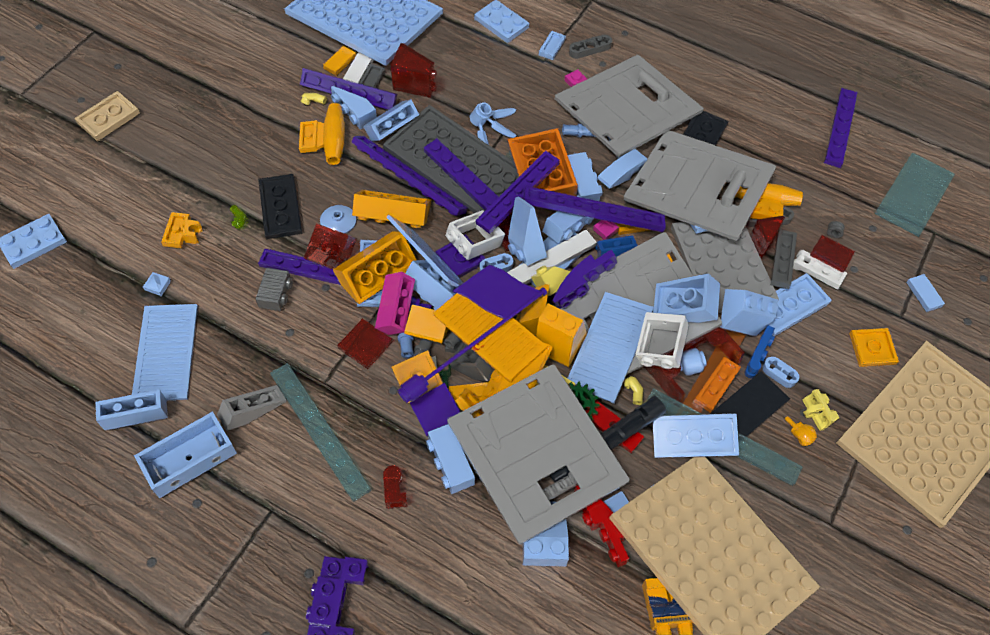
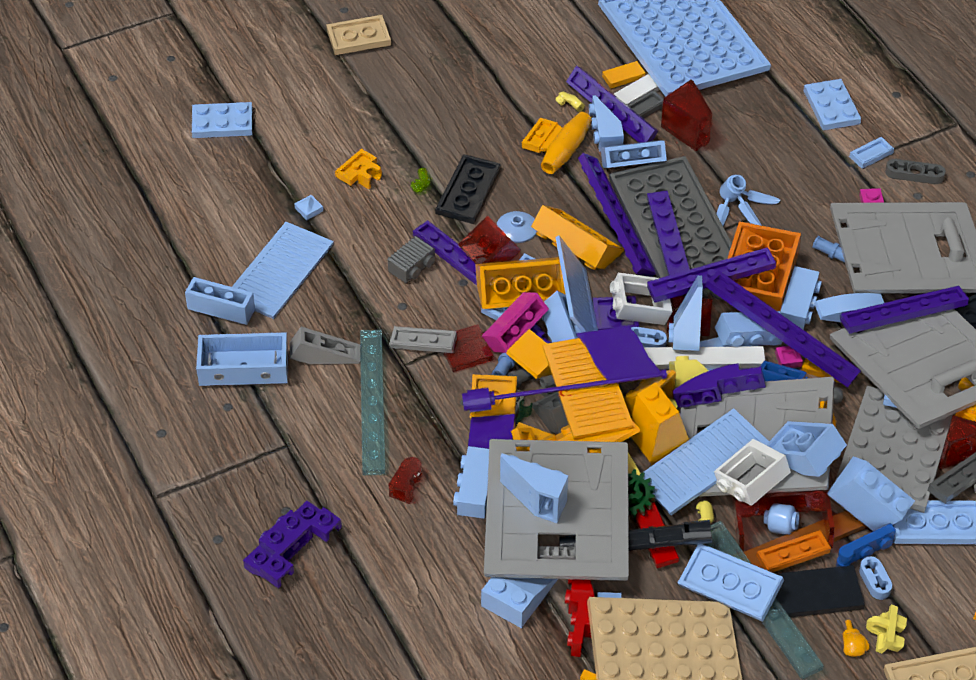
camera: 35 degrees right, 10 degrees down
(327, 354) = (423, 339): none -> light grey tile
(520, 447) = (536, 487): none -> light blue slope
(660, 153) = (904, 309): none -> dark purple plate

